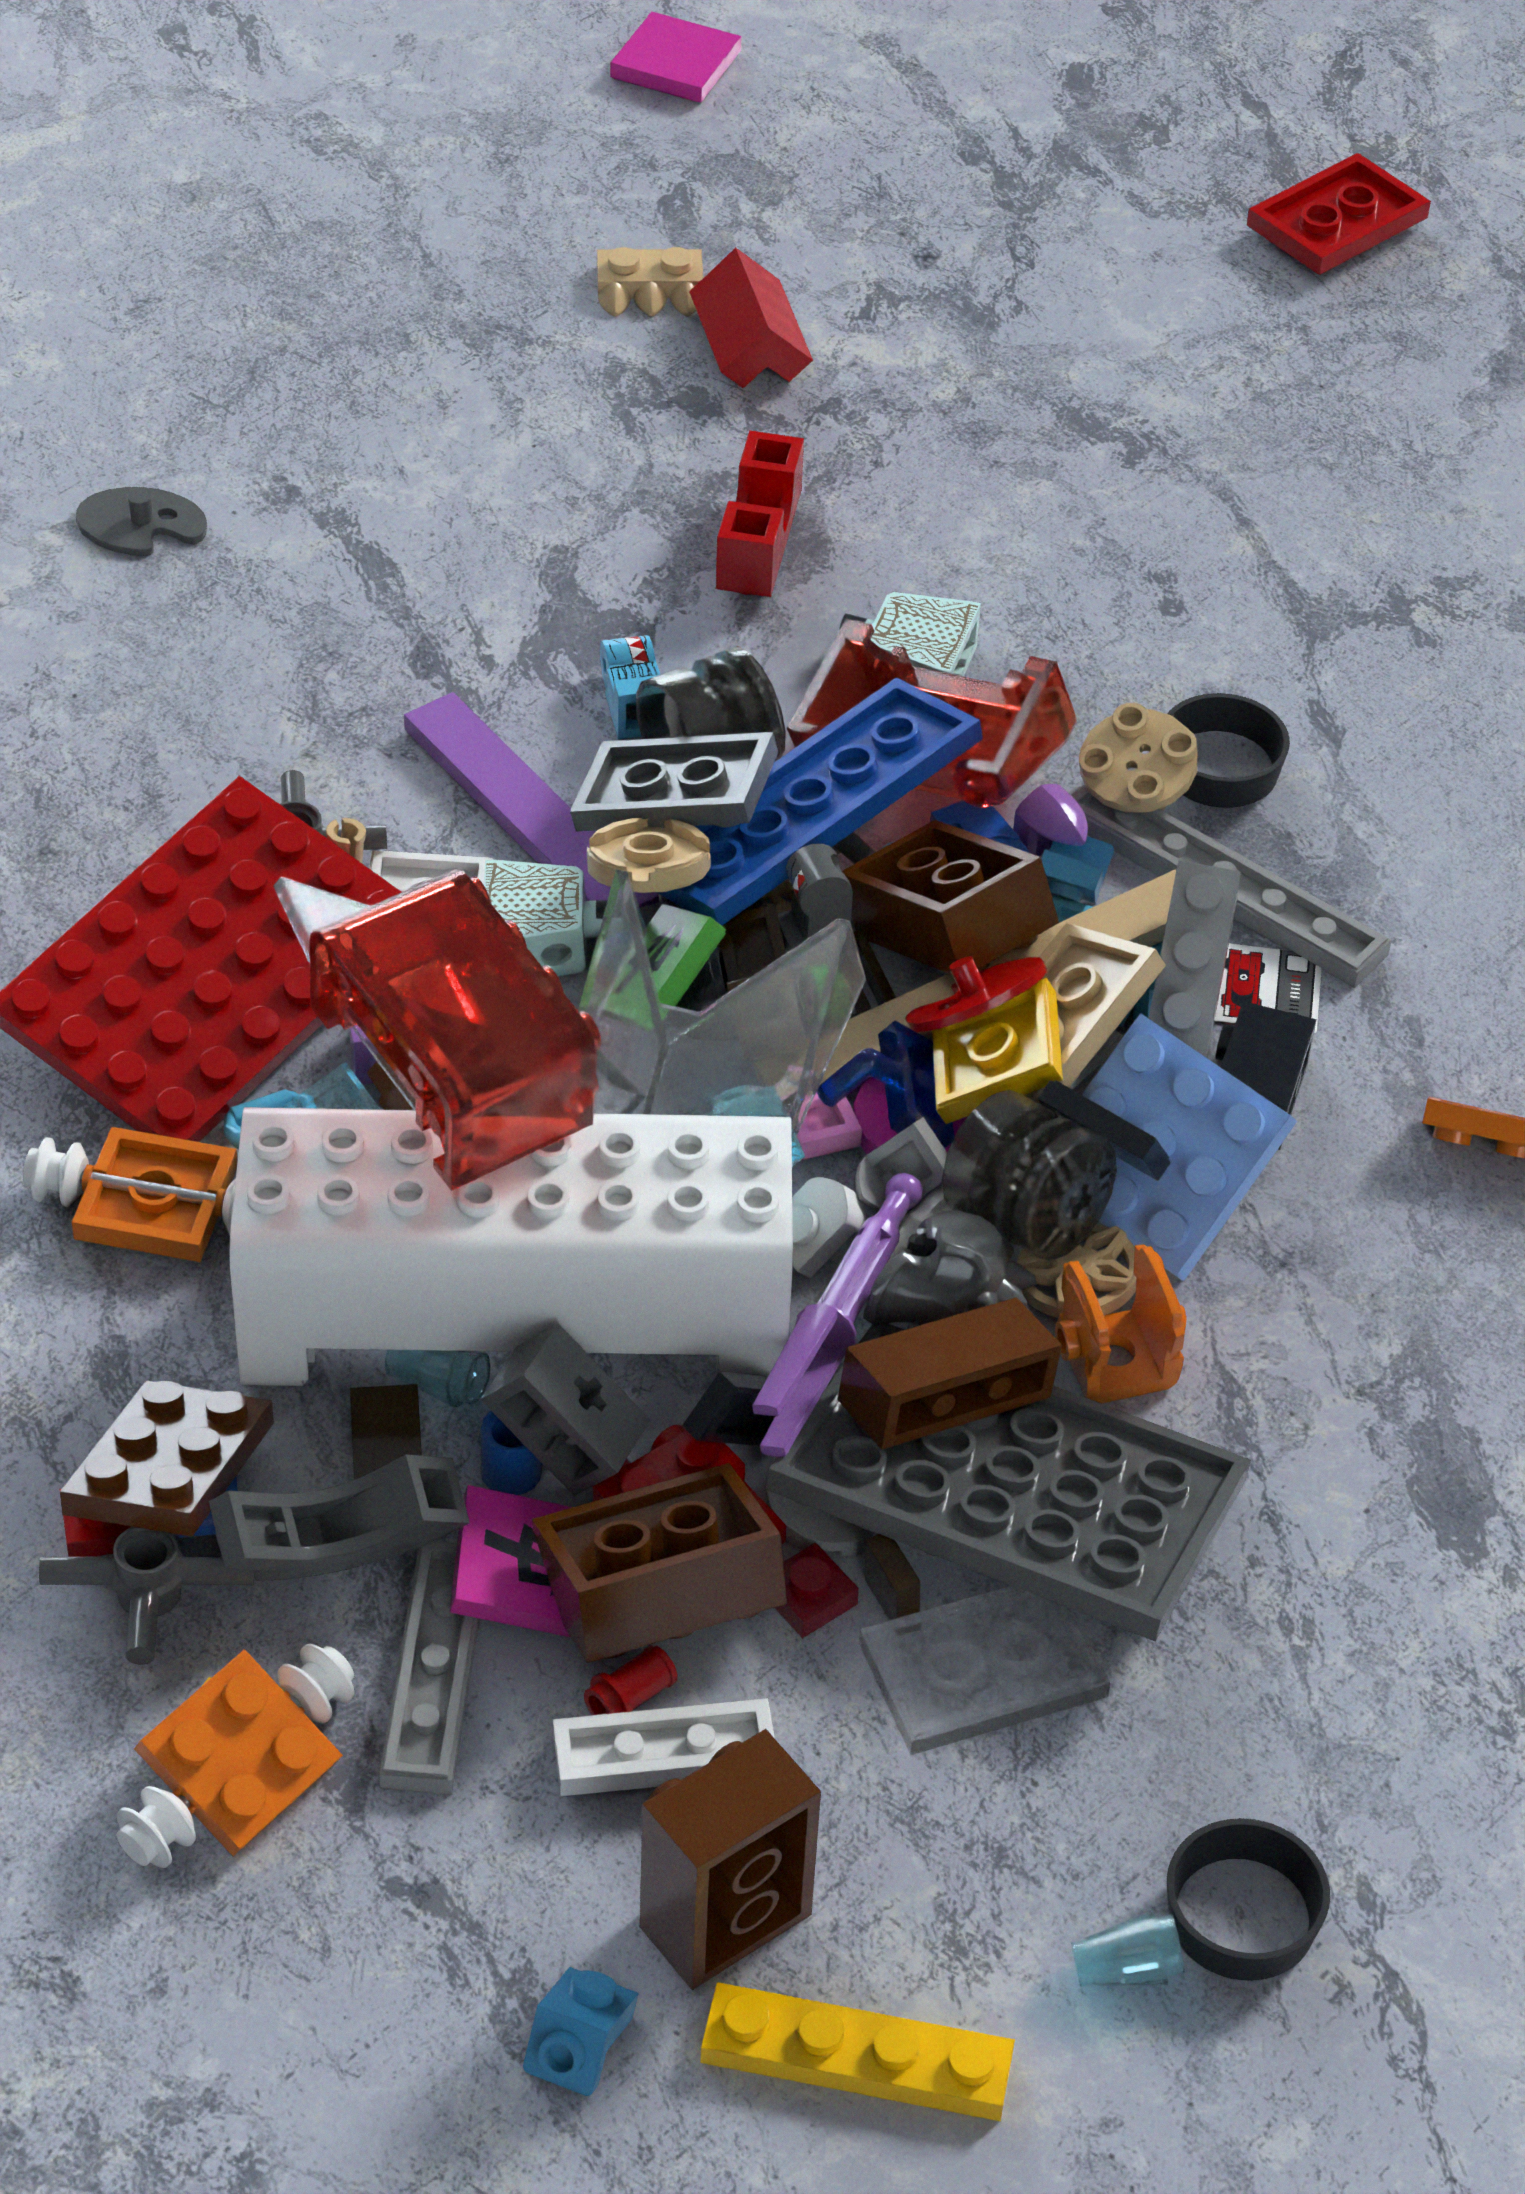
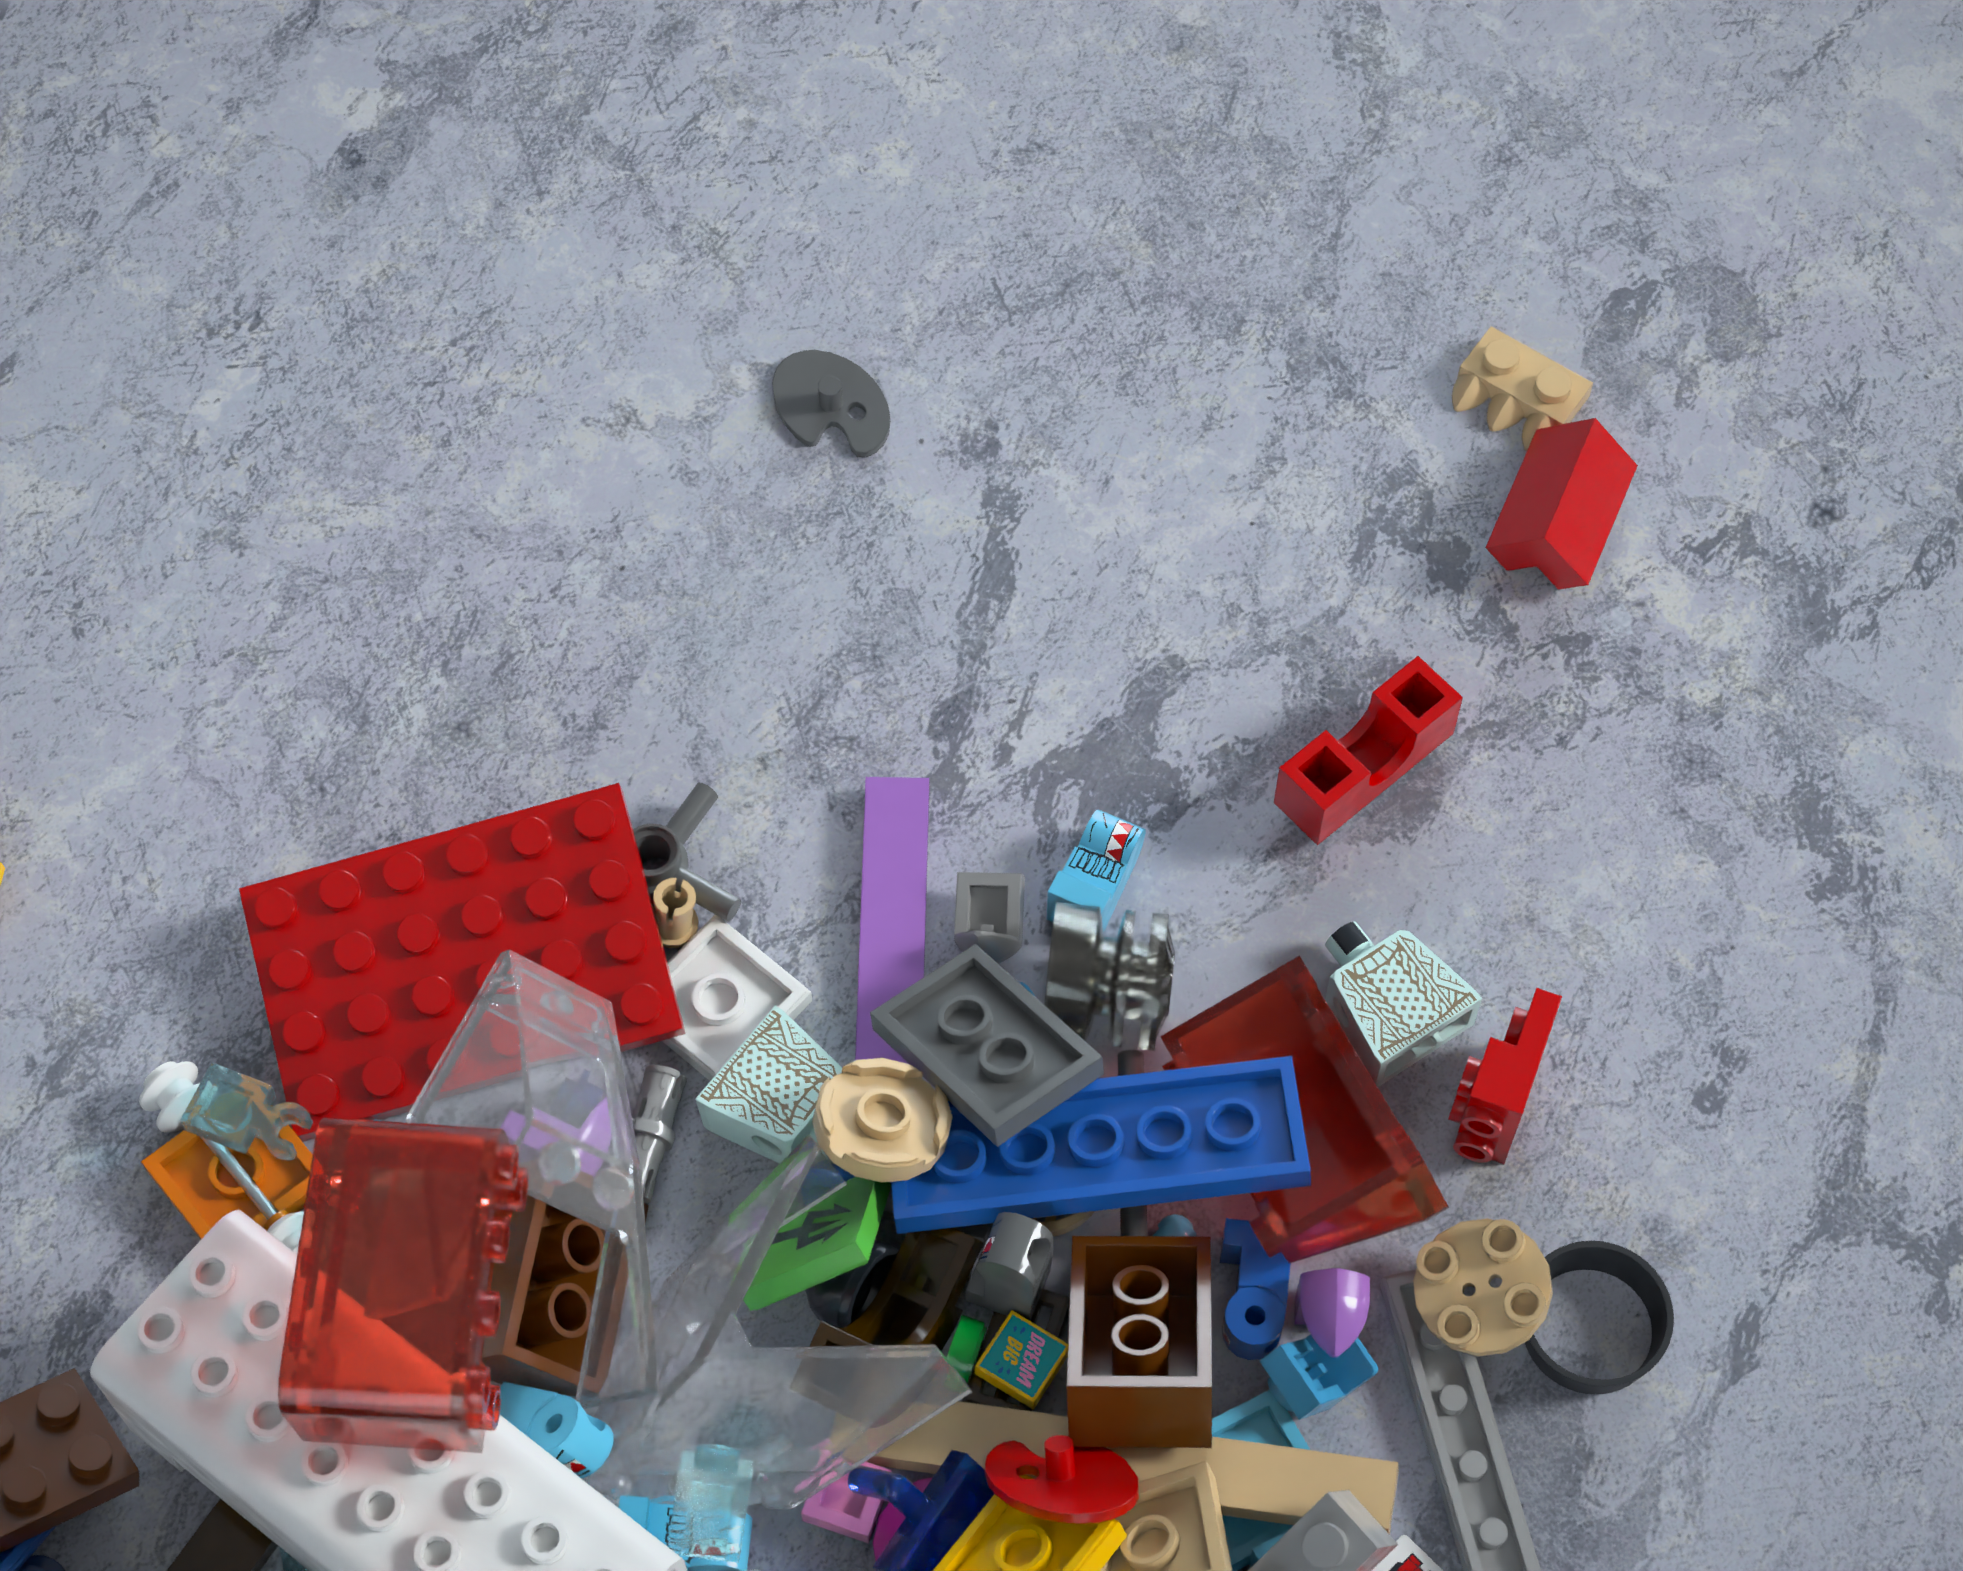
camera: 40 degrees right, 15 degrees up
(129, 1138) = (237, 1108): none -> clear light blue plate
(573, 740) = (990, 912): none -> light grey plate
(675, 57) = (1772, 123): dark pink tile -> none
(881, 971) = (1022, 1359): none -> tile
(1046, 620) = (1499, 1085): none -> red plate

